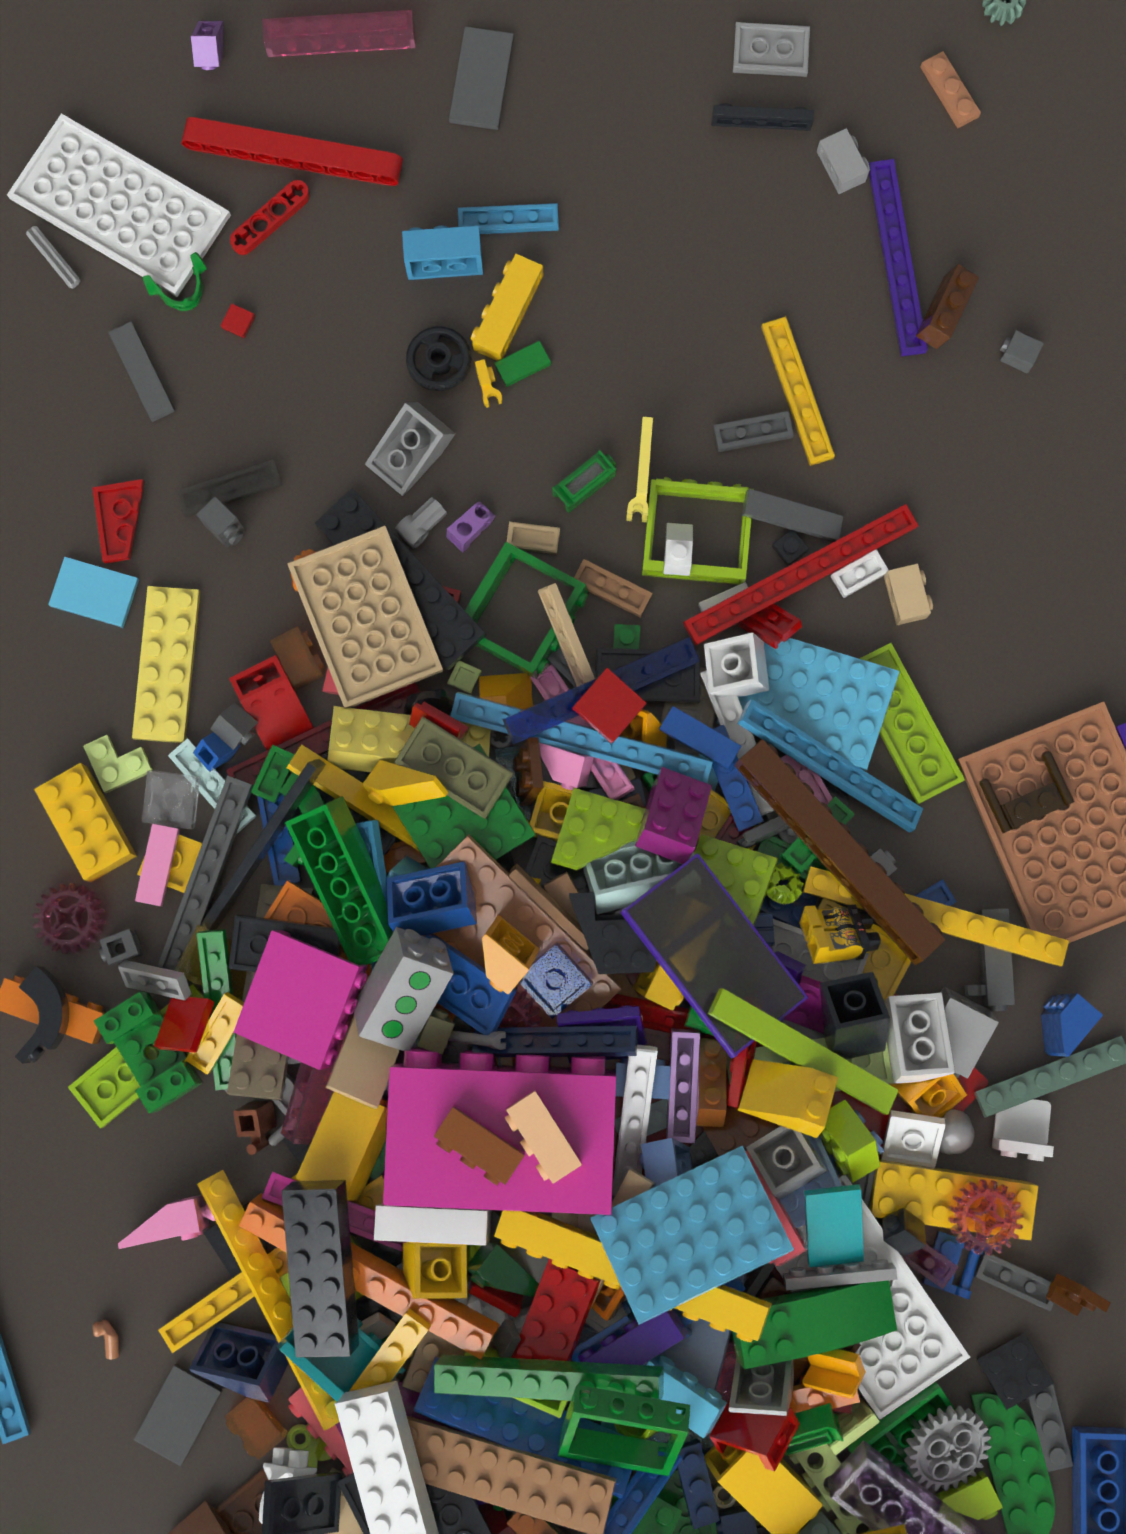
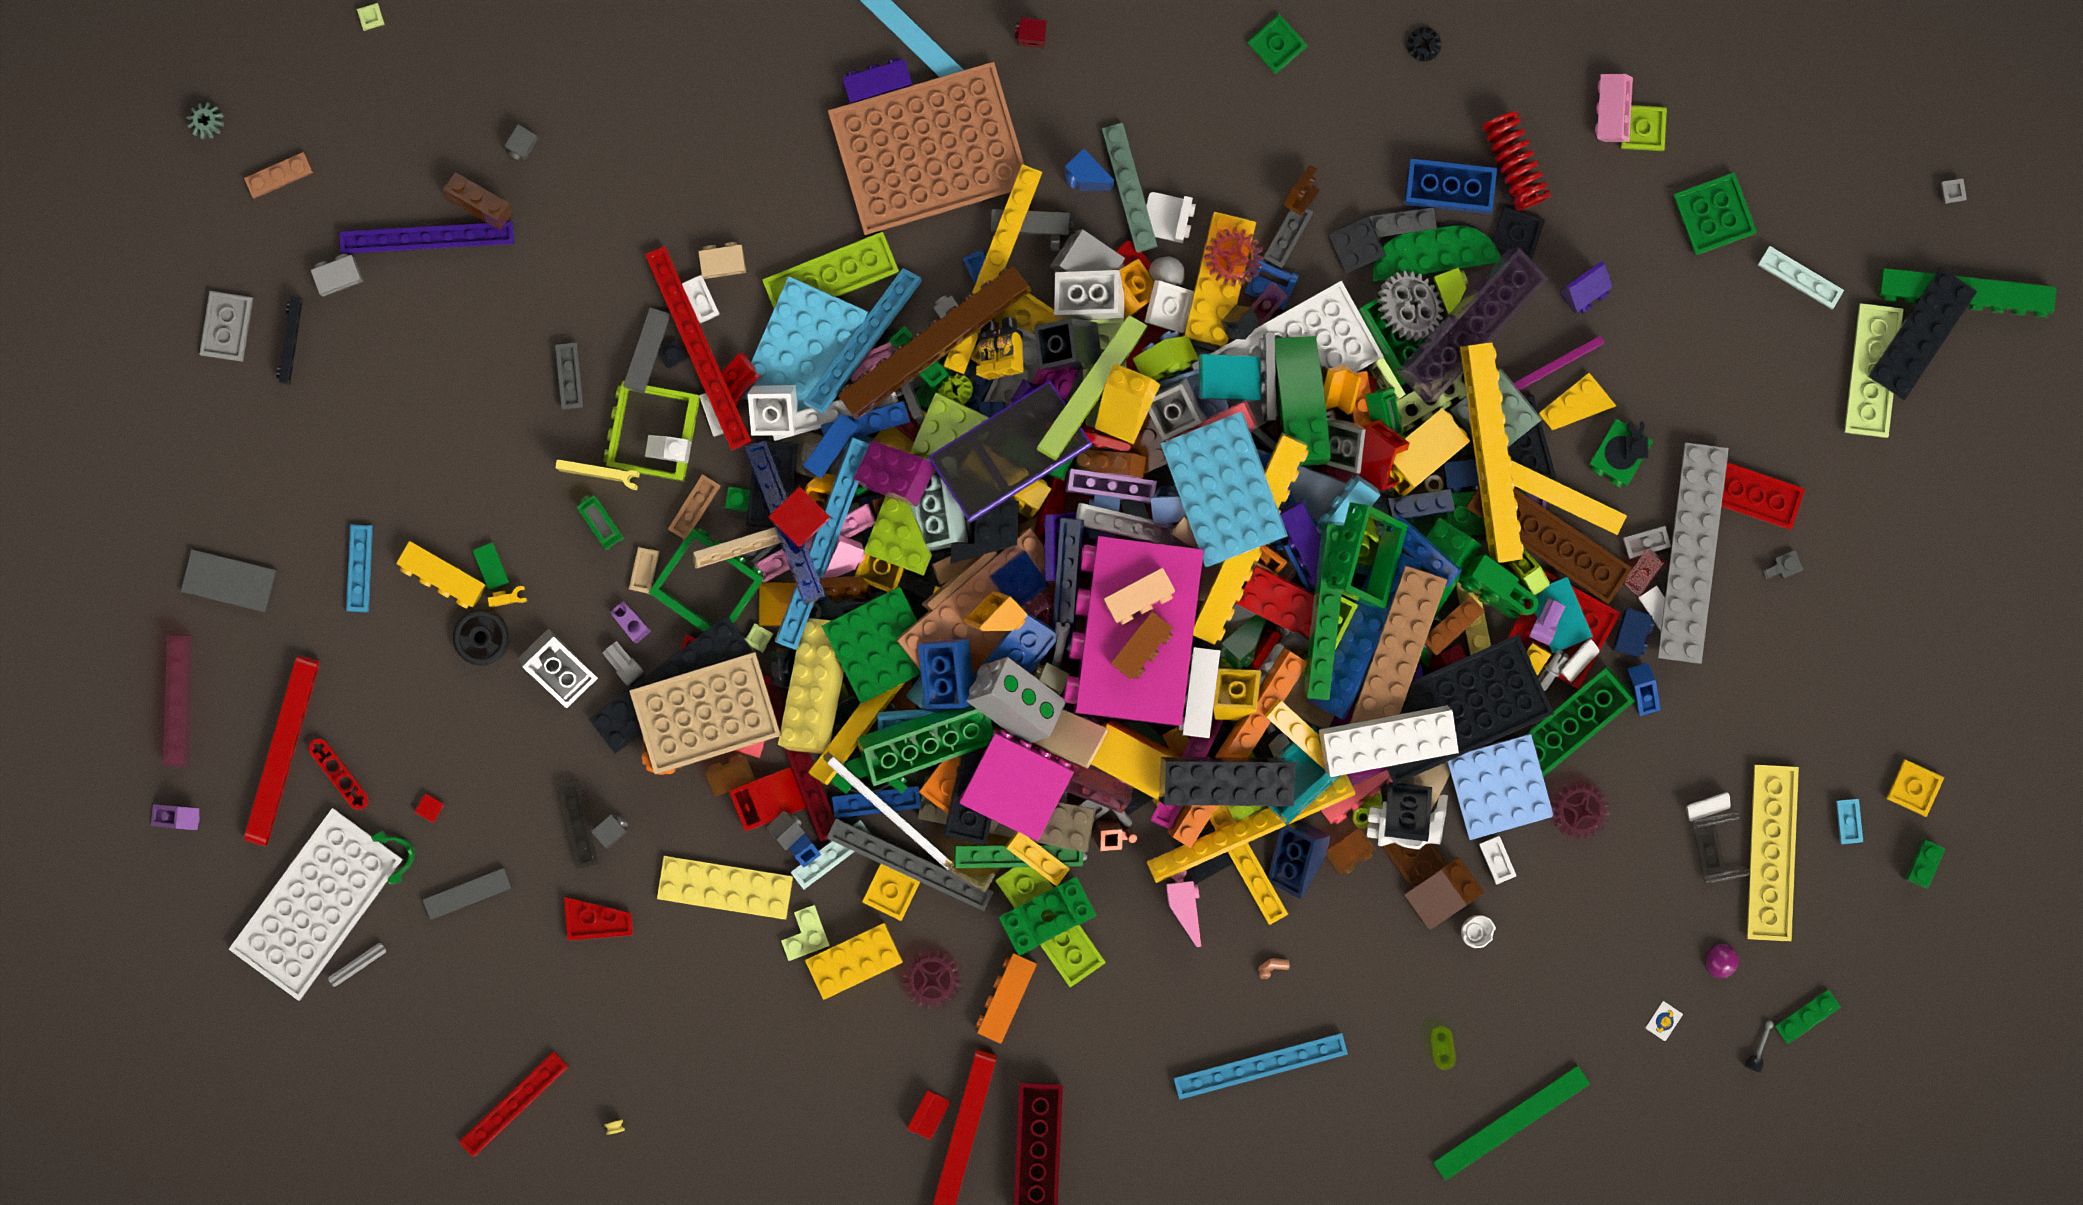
camera: 90 degrees left, 5 degrees up
(53, 1014) = (1005, 991): black arch -> none
(93, 592) = (657, 945): medium azure tile -> none
(109, 947) = (956, 930): dark grey brick -> none
(154, 980) = (989, 909): light grey plate -> none
(157, 865) = (895, 902): bright pink tile -> none
(170, 799) = (840, 889): clear plate -> none
(178, 1415) = (1337, 914): dark grey tile -> none
(184, 1024) = (1027, 884): red tile -> none
(273, 774) = (828, 800): green plate -> none
(401, 785) = (850, 692): yellow slope -> none
(439, 718) = (802, 659): red panel -> none
(442, 252) = (388, 625): dark azure brick -> none
(461, 769) = (840, 647): olive tile -> none
(798, 391) = (536, 334): yellow tile -> none
(1032, 804) = (908, 179): dark brown plate -> none

